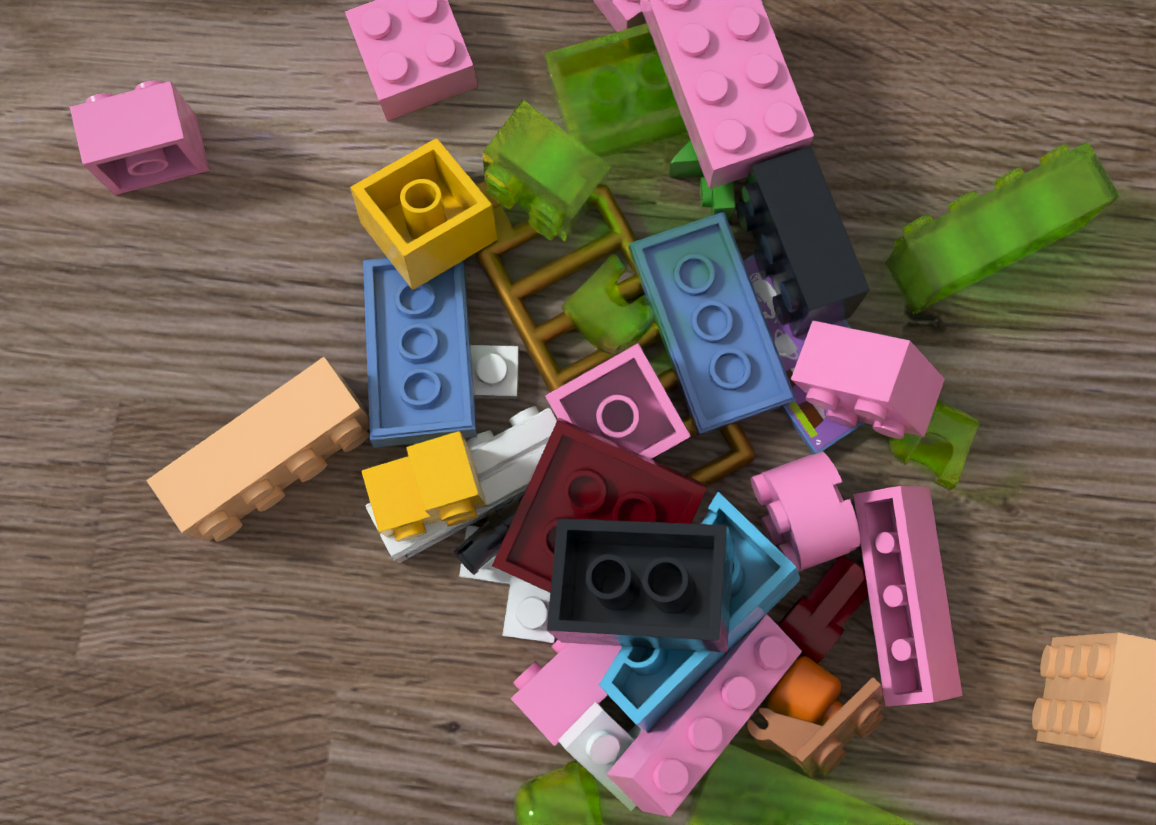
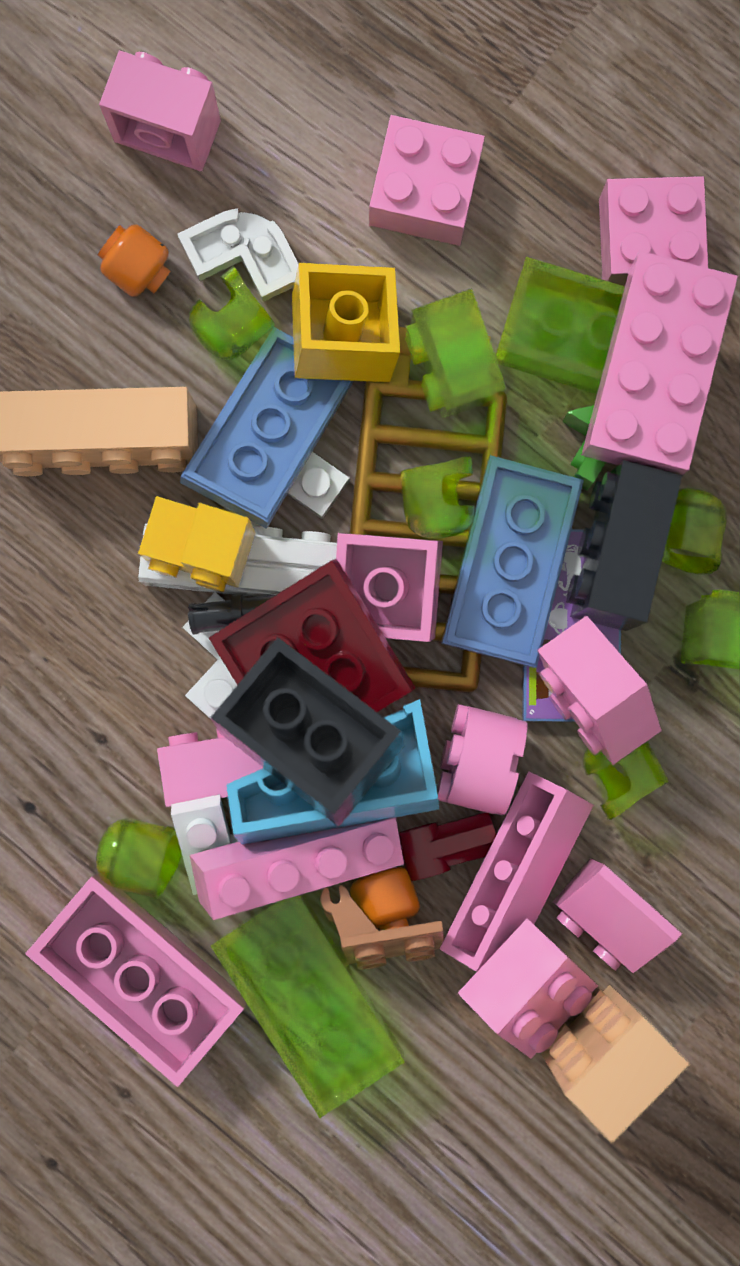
camera: 25 degrees right, 5 degrees up
(201, 283) = (134, 260): none -> orange head
(287, 200) = (245, 238): none -> white plate
(328, 281) = (235, 326): none -> clear neon green helmet
(853, 187) = (698, 528): none -> clear neon green helmet
(990, 686) = (528, 990): none -> bright pink brick
(1018, 571) = (615, 917): none -> bright pink slope

